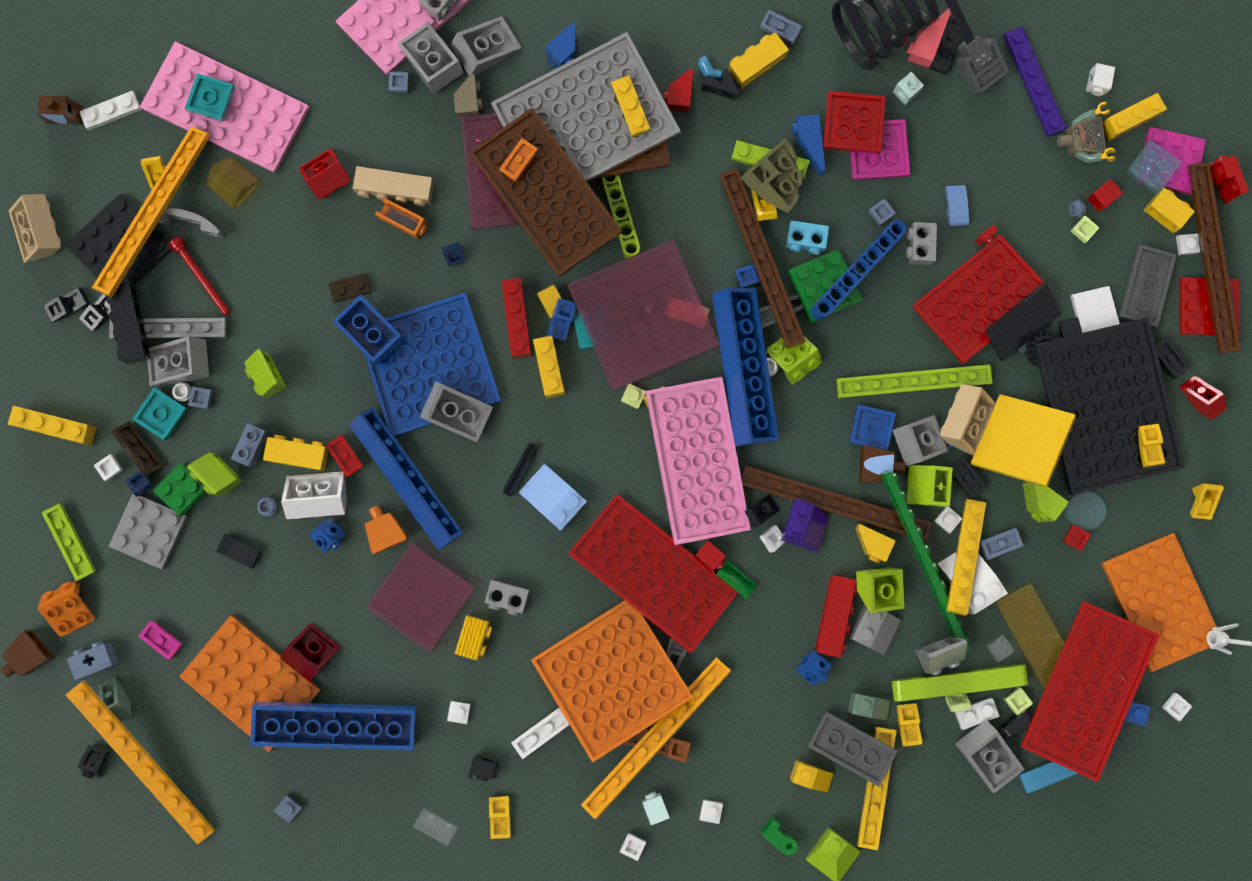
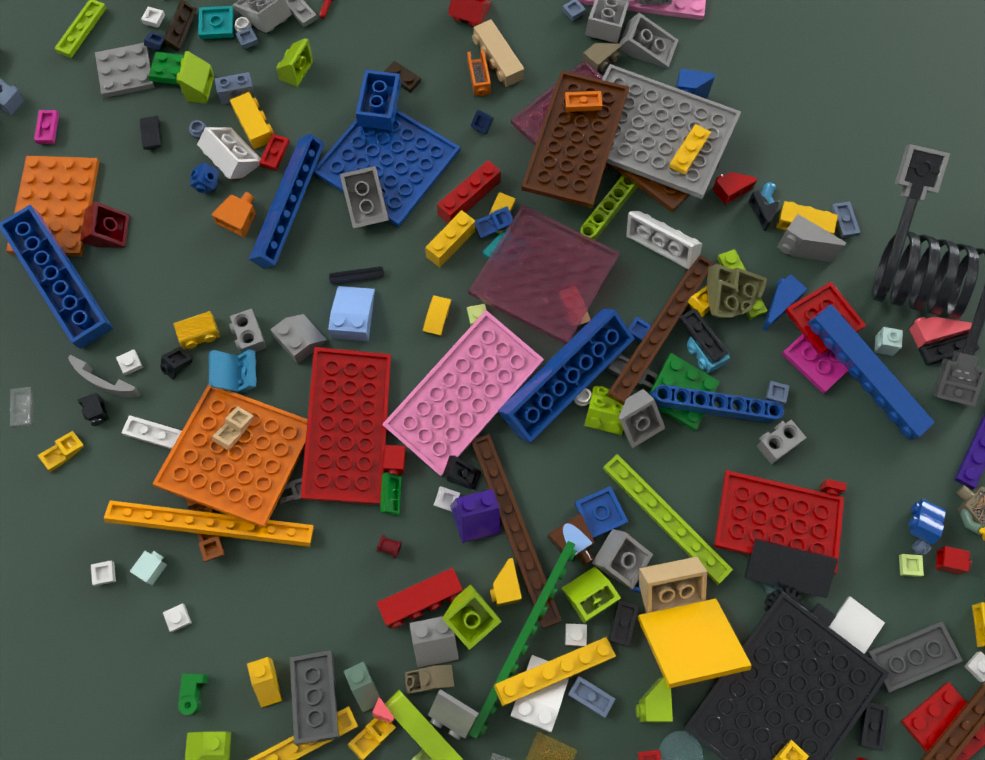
camera: 50 degrees right, 15 degrees down
(65, 608) = (27, 55): orange bracket -> none
(420, 597) = (202, 273): clear pink plate -> none
(438, 755) = (120, 389): none -> light grey slope
(488, 674) = (174, 361): none -> black bracket
(536, 632) = (232, 371): none -> dark azure bracket
(543, 557) = (298, 336): none -> light grey slope
(590, 666) = (234, 427): none -> tan slope
(609, 430) = (437, 315): none -> yellow slope
(686, 192) = (663, 239): none -> white slope
(774, 78) = (810, 241): none -> light grey slope
(777, 610) = (389, 546): none -> dark red bush
(796, 232) = (703, 336): none -> black tile
(814, 668) = (361, 611): blue brick -> none
(825, 338) = (640, 418): none -> light grey slope
(900, 706) = (381, 712): none -> coral slope
(901, 653) = (429, 679): none -> dark tan slope
(924, 128) = (870, 372): none -> blue brick
(957, 205) = (835, 447): medium blue slope -> none
(1064, 189) = (927, 521): none -> blue brick

